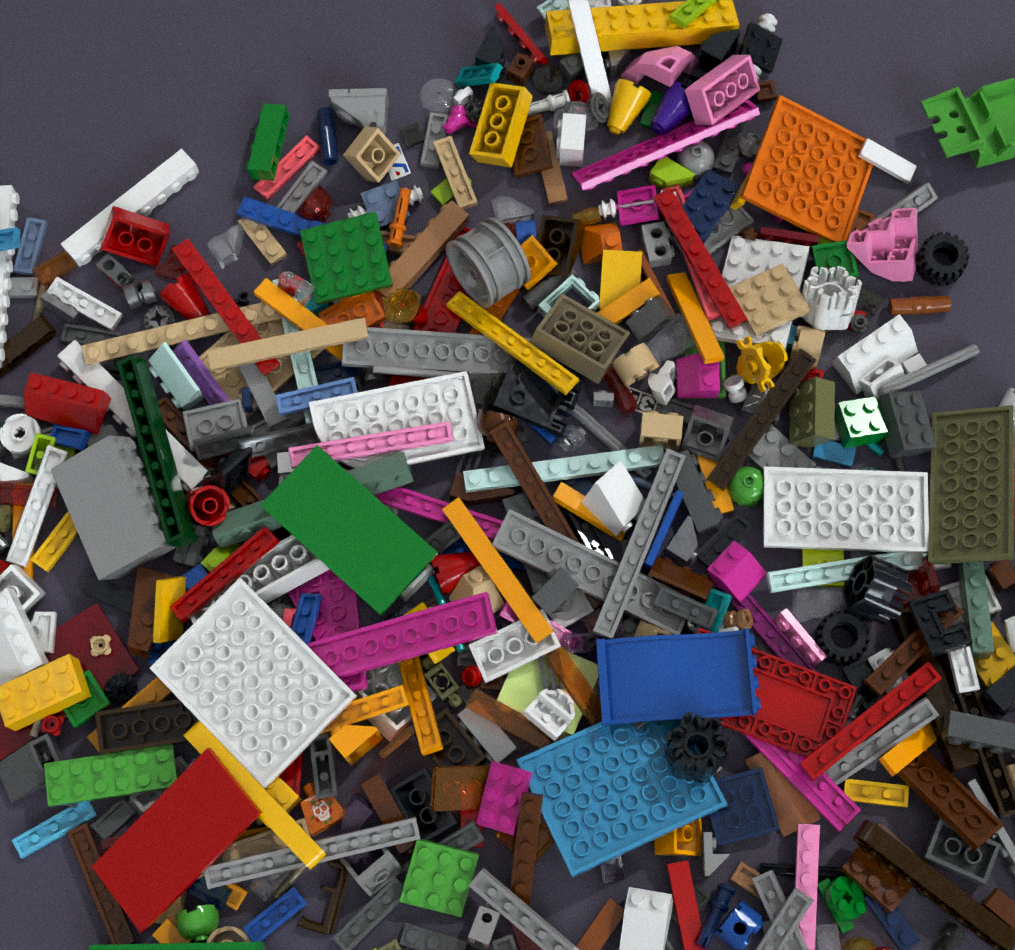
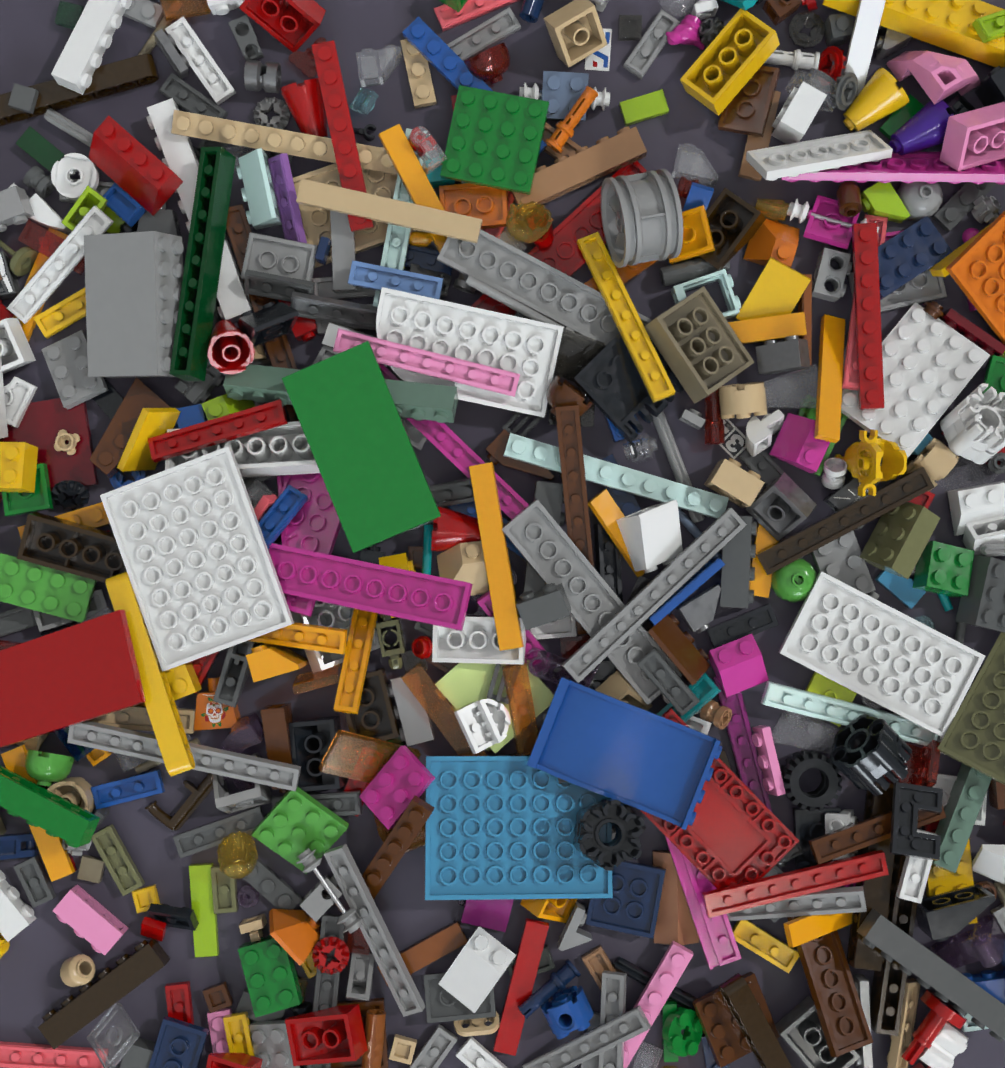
camera: 20 degrees right, 15 degrees up
(81, 587) = (70, 370): none -> light grey plate
(229, 276) = (364, 101): none -> clear light blue plate
(321, 359) = (420, 239): none -> light orange arm
(395, 923) = (237, 855): none -> clear yellow hair
(455, 173) = (655, 94): tan plate -> none
(461, 898) = (348, 918): none -> light grey axle
(601, 160) = (818, 155): none -> white plate
(630, 870) = (488, 913): none -> magenta tile
(642, 182) = (849, 199): none -> reddish brown brick
(770, 299) = (919, 396): tan plate -> none

